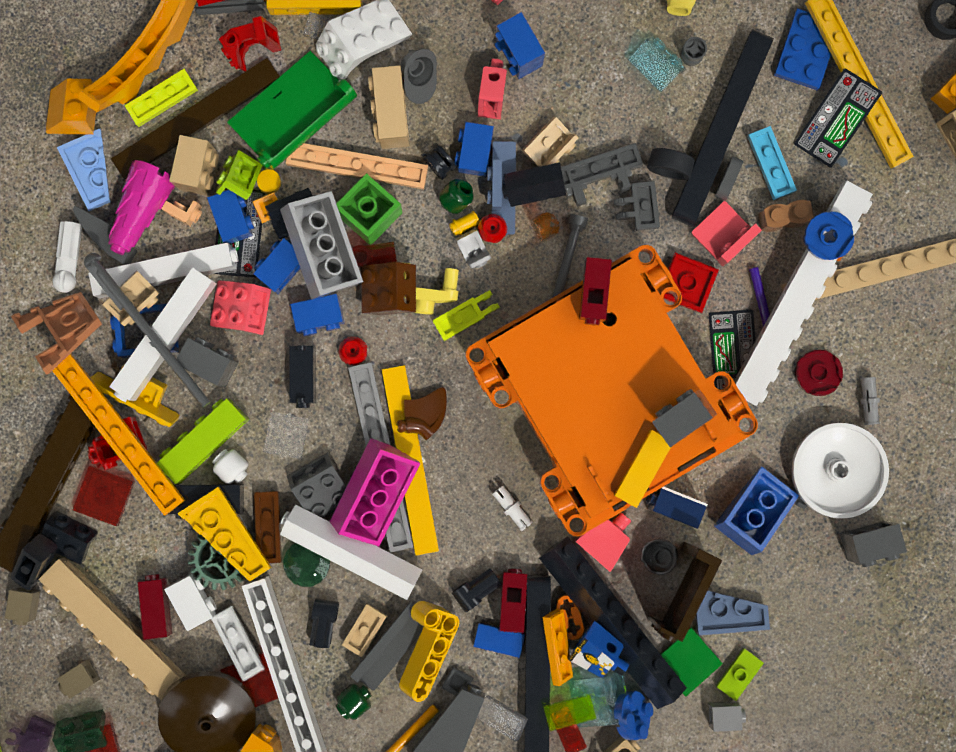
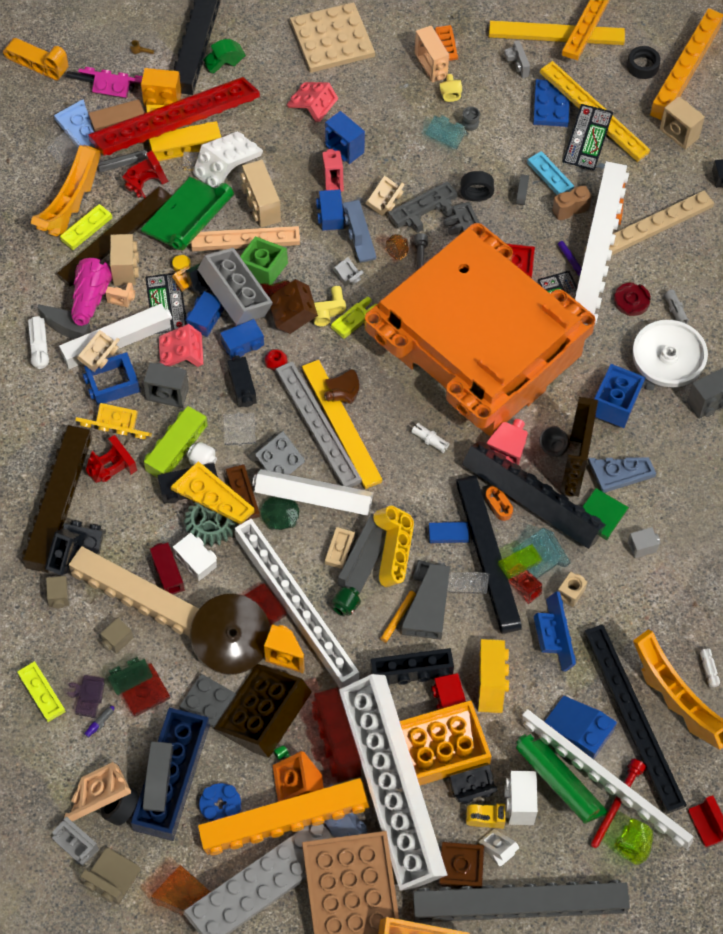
camera: 15 degrees left, 25 degrees down
(67, 112) = (19, 244): light orange slope -> none
(68, 320) = (49, 382): nougat wing -> none
(87, 167) = (39, 282): light blue wing -> none
(93, 265) = (93, 346): dark grey bar -> none
(103, 495) = (104, 502): clear red plate -> none
(118, 435) = (109, 443): light orange plate -> none
(169, 328) = (129, 369): white brick -> none
(231, 217) = (158, 289): blue brick -> none
(238, 643) = (240, 579): white tile -> none
(239, 175) = (160, 258): lime bracket -> none
(324, 616) = (305, 550): black piece -> none
(374, 493) = (321, 442): dark pink slope -> none
(419, 75) = (277, 169): dark grey piece -> none
(438, 161) = (306, 221): black wheel -> none
(456, 196) = (325, 240): dark green head -> none
(464, 223) = (337, 258): yellow pin -> none
(472, 592) = (416, 502): black piece -> none
(495, 235) = (361, 259): red plate -> none
(513, 601) = (451, 498): dark red brick -> none
(534, 184) = (382, 217): black brick -> none
(557, 647) = (496, 521): light orange tile -> none
(595, 290) = (447, 248): dark red brick -> none
(599, 652) = (528, 513): blue torso -> none
(633, 715) = (571, 555): blue plate -> none
(643, 469) = (519, 353): yellow tile -> none
(676, 506) = (554, 401): dark blue piece -> none
(685, 417) = (538, 304): dark grey brick -> none
(722, 128) = (507, 161): black beam -> none
(724, 233) = (532, 224): coral bracket -> none
(739, 674) = (644, 512): lime plate -> none
(842, 233) = (602, 205): blue plate -> none

